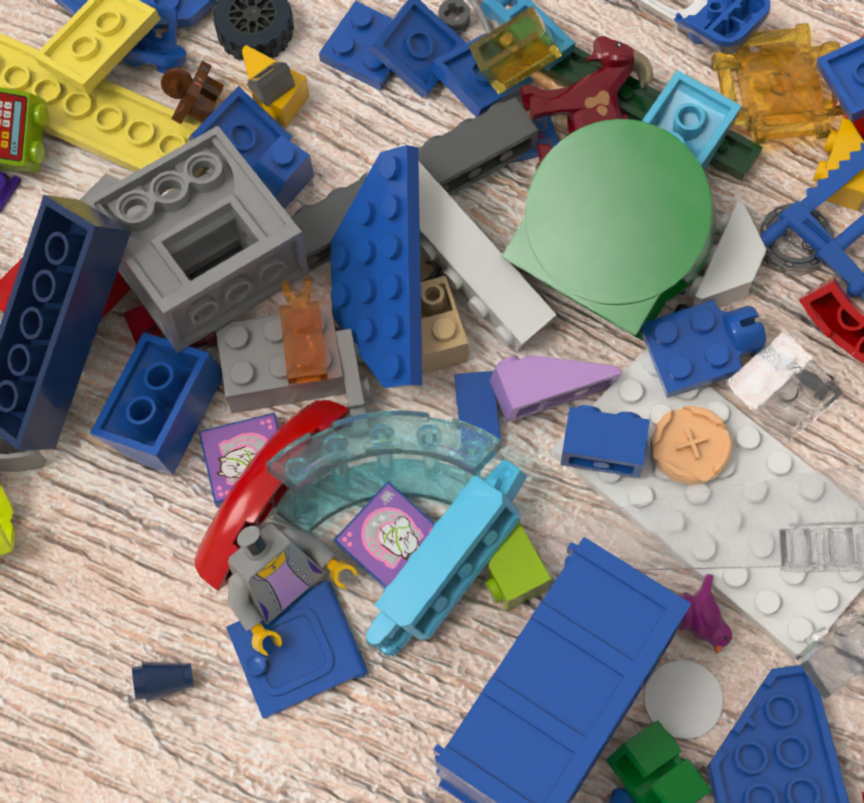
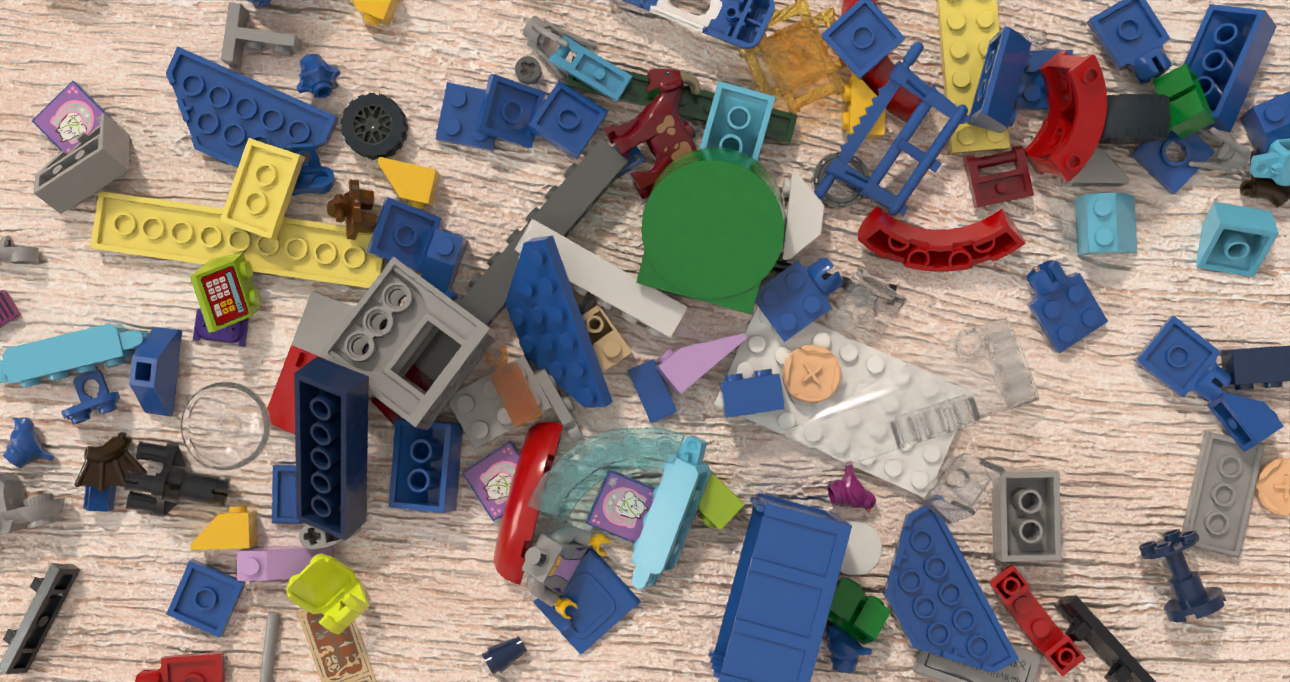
camera: 20 degrees left, 20 degrees up
(271, 82) = (411, 185): dark grey slope -> none
(515, 50) = (591, 104): clear yellow brick -> none

